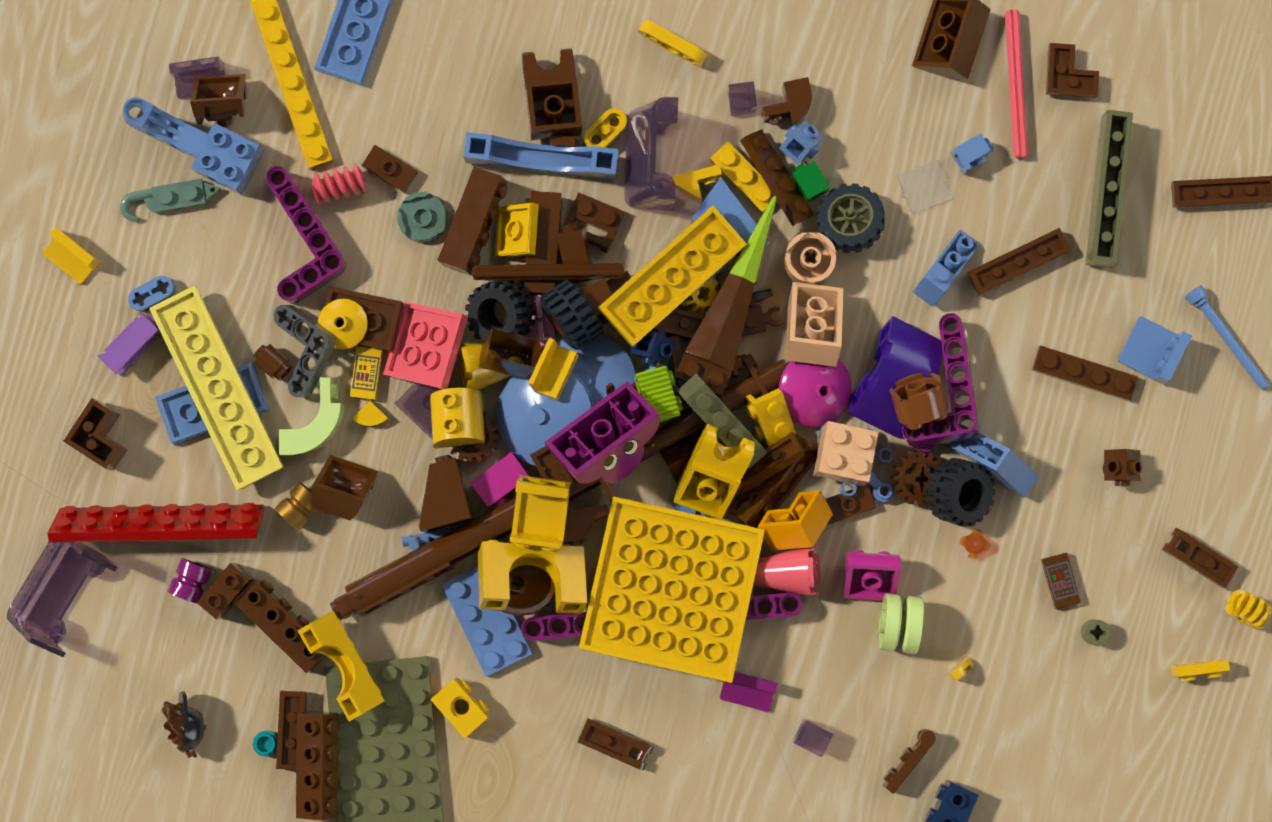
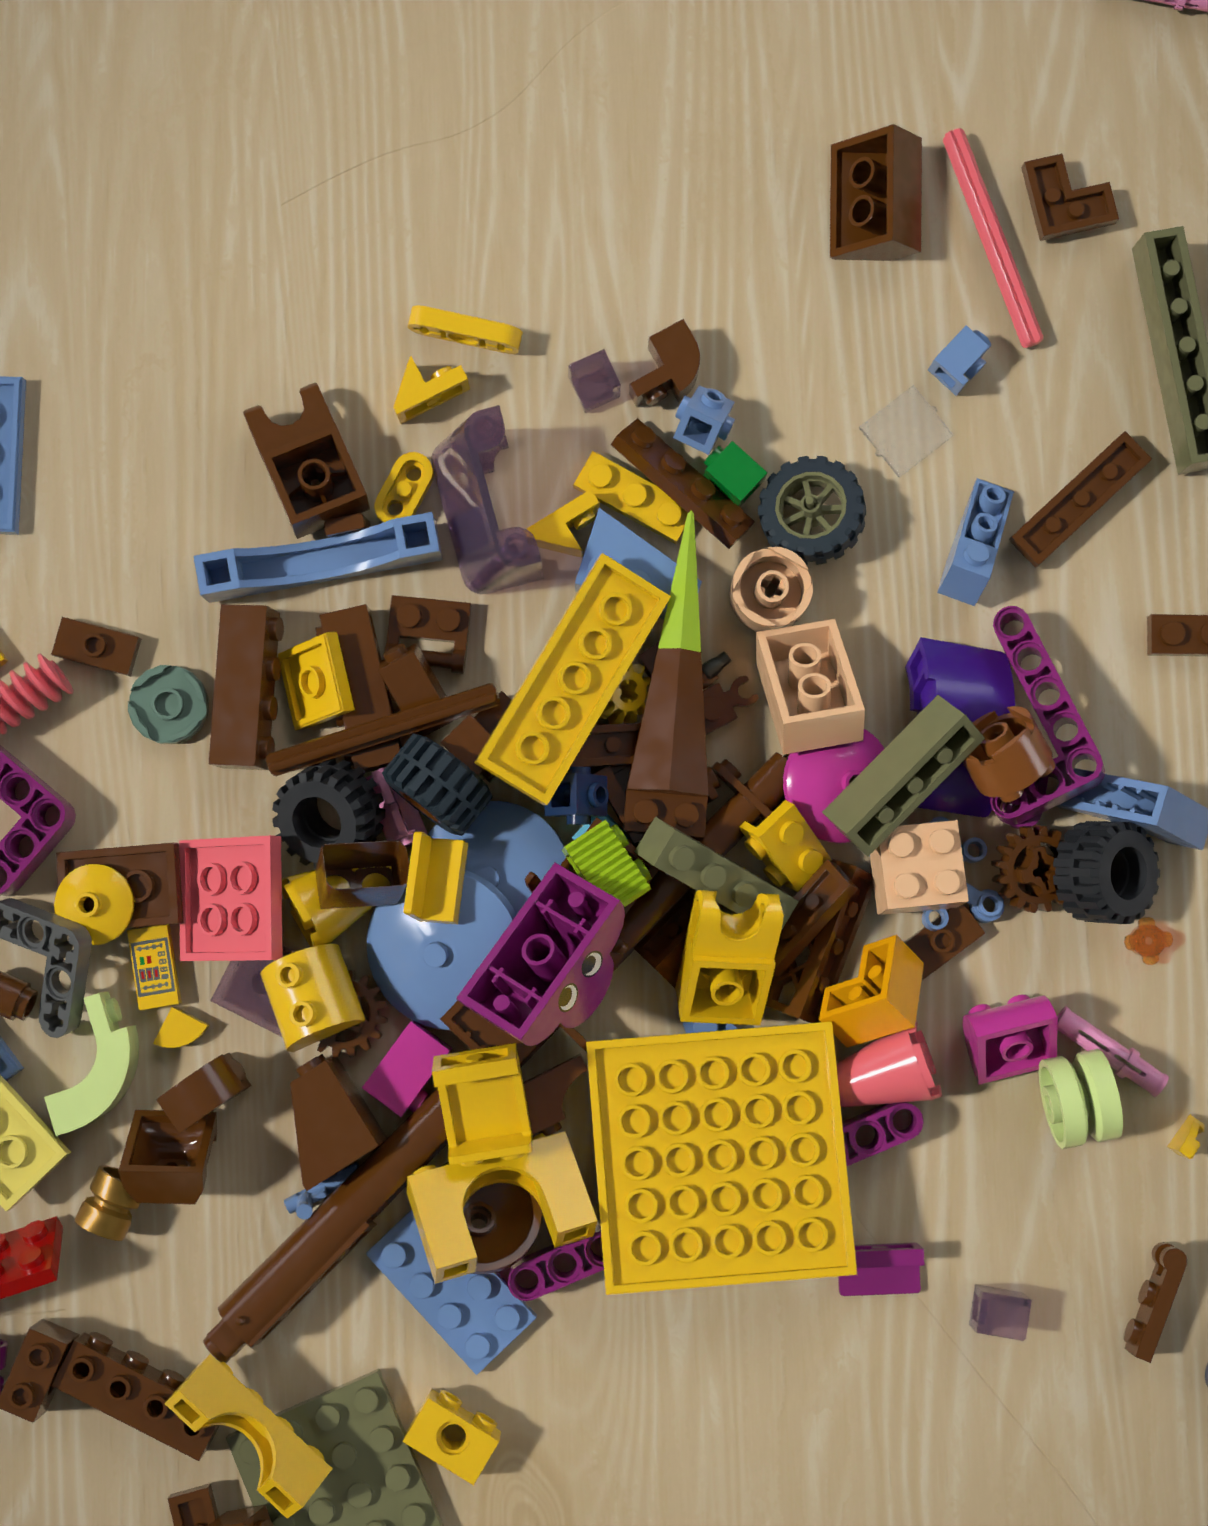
camera: 25 degrees left, 0 degrees up
(375, 455) = (204, 1091): none -> reddish brown brick
(614, 743) = (704, 1416): reddish brown plate -> none
(631, 76) = (418, 396): none -> yellow slope
(853, 394) = (903, 775): none -> olive brick
(950, 627) = (1149, 1079): none -> bright pink pin

